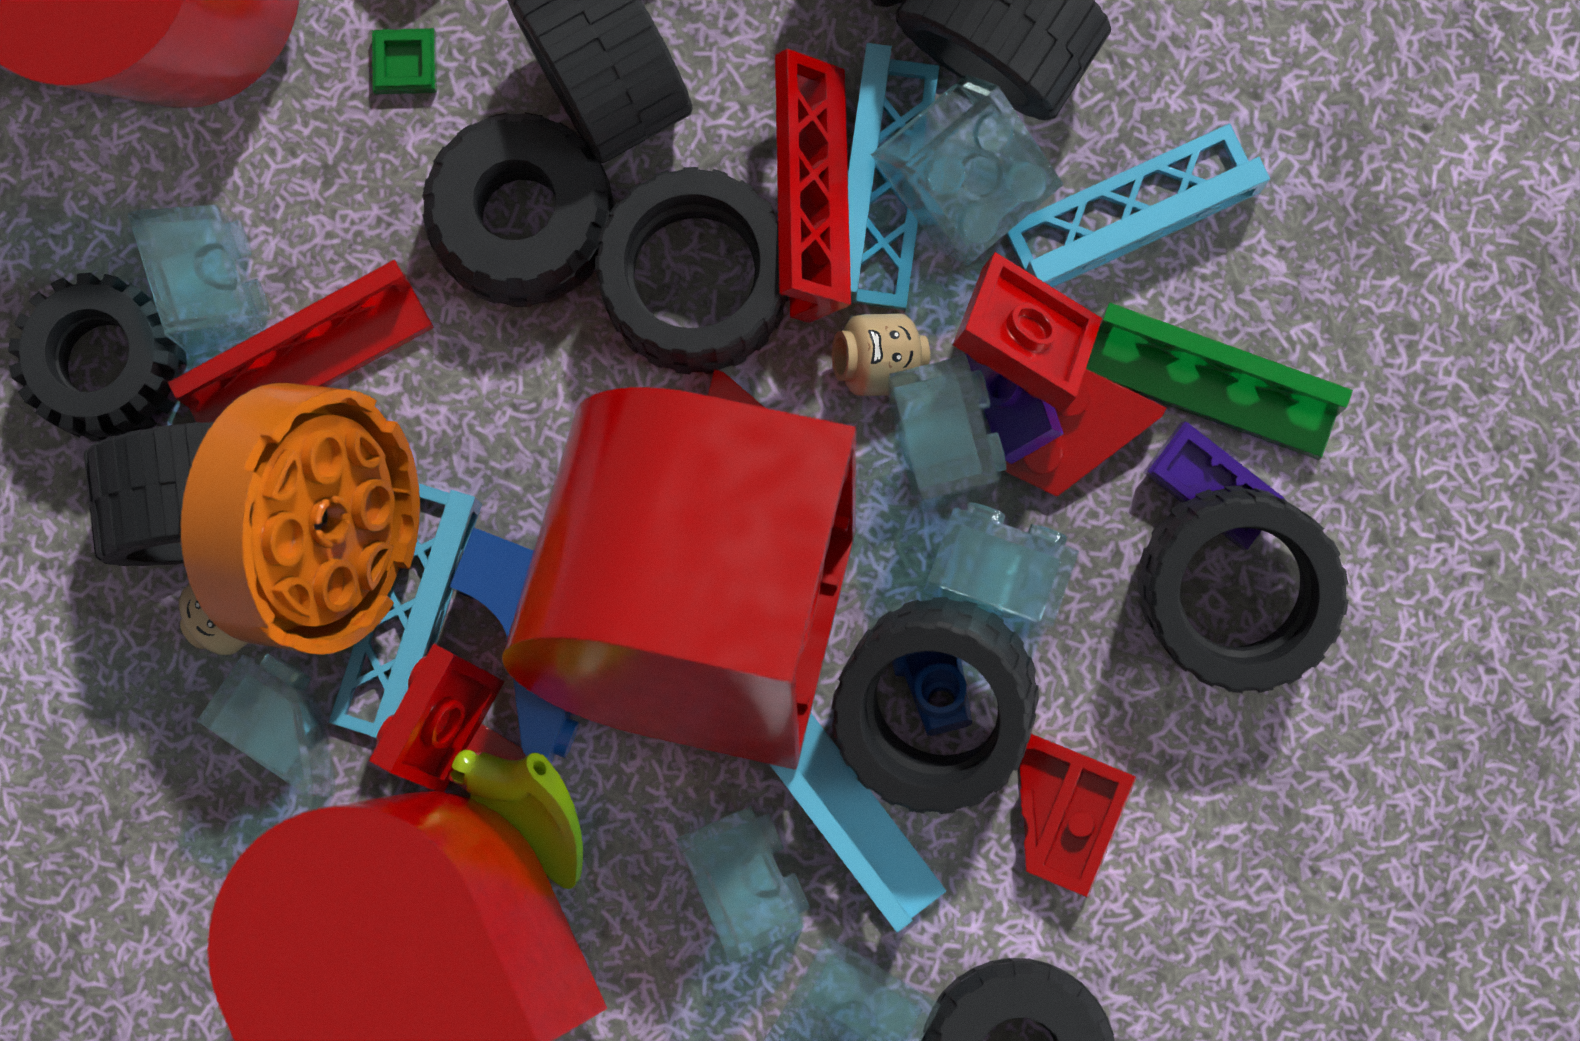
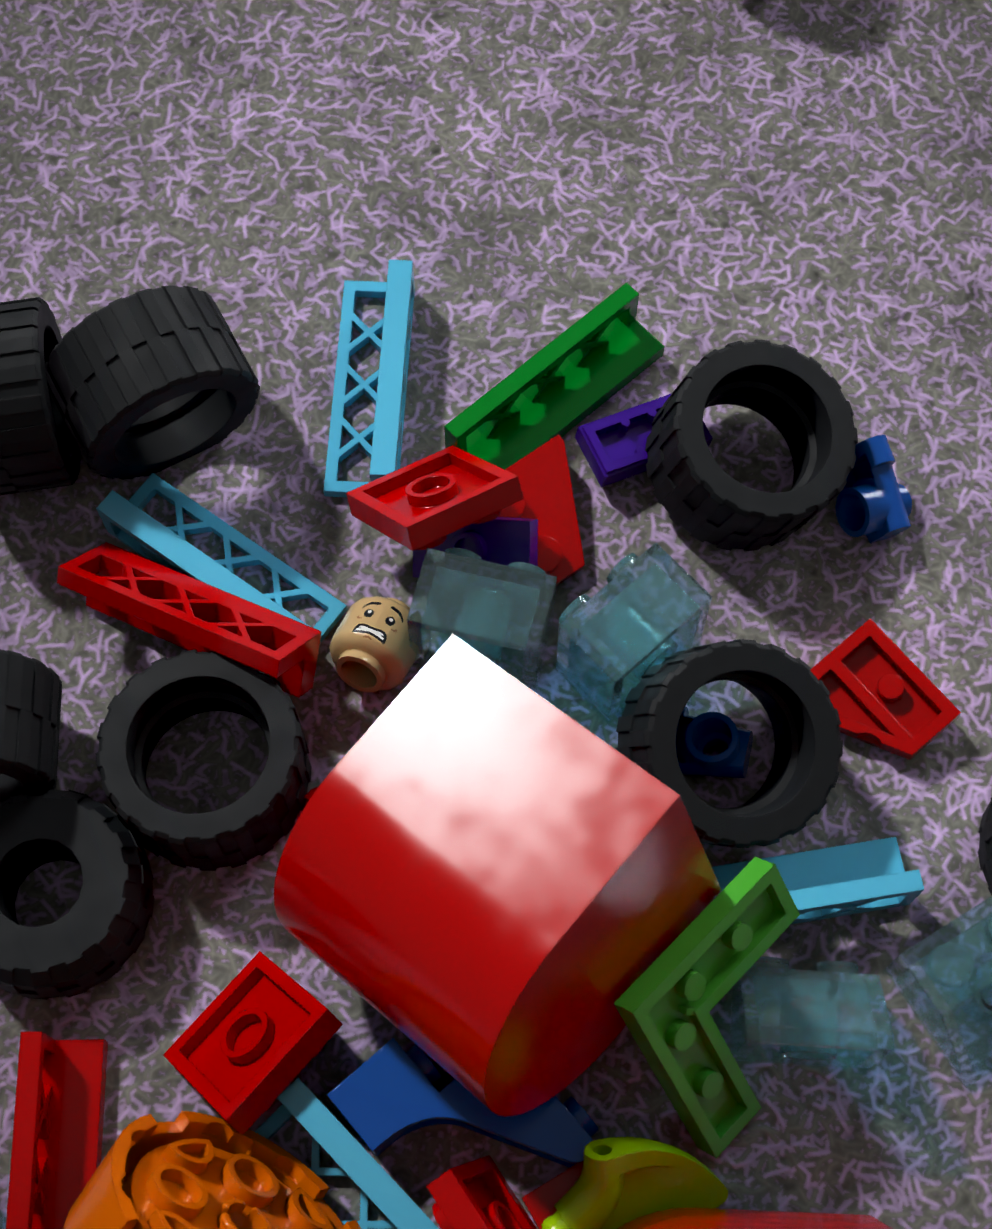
camera: 65 degrees left, 15 degrees down
(486, 443) = (252, 1042): none -> red plate
(683, 765) = (674, 995): none -> bright green plate
(967, 168) = (258, 482): clear light blue brick -> none
(1263, 729) = (872, 498): none -> blue plate

